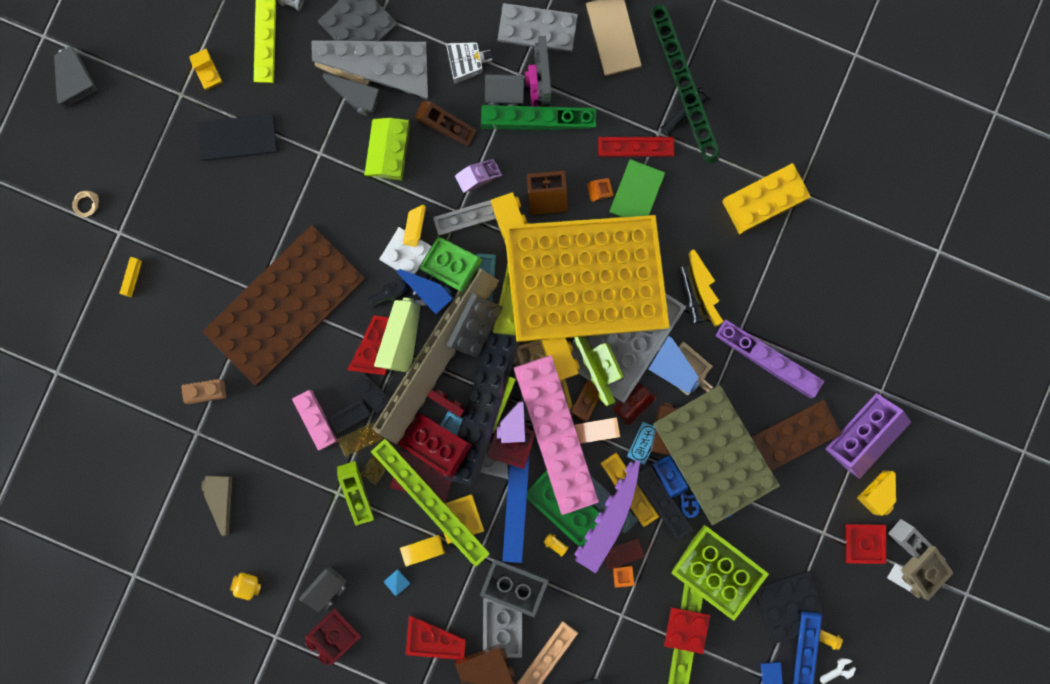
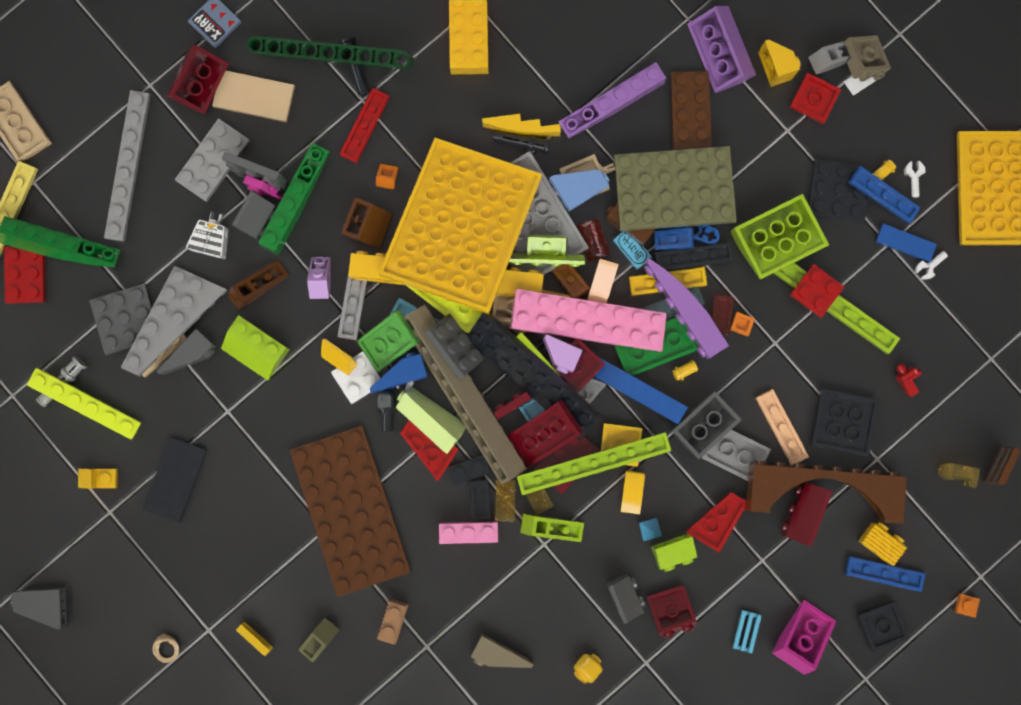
camera: 60 degrees left, 0 degrees up
(157, 334) = (319, 639): none -> olive slope
(386, 614) = (674, 552): none -> lime slope
(637, 190) = (404, 144): bright green tile -> none

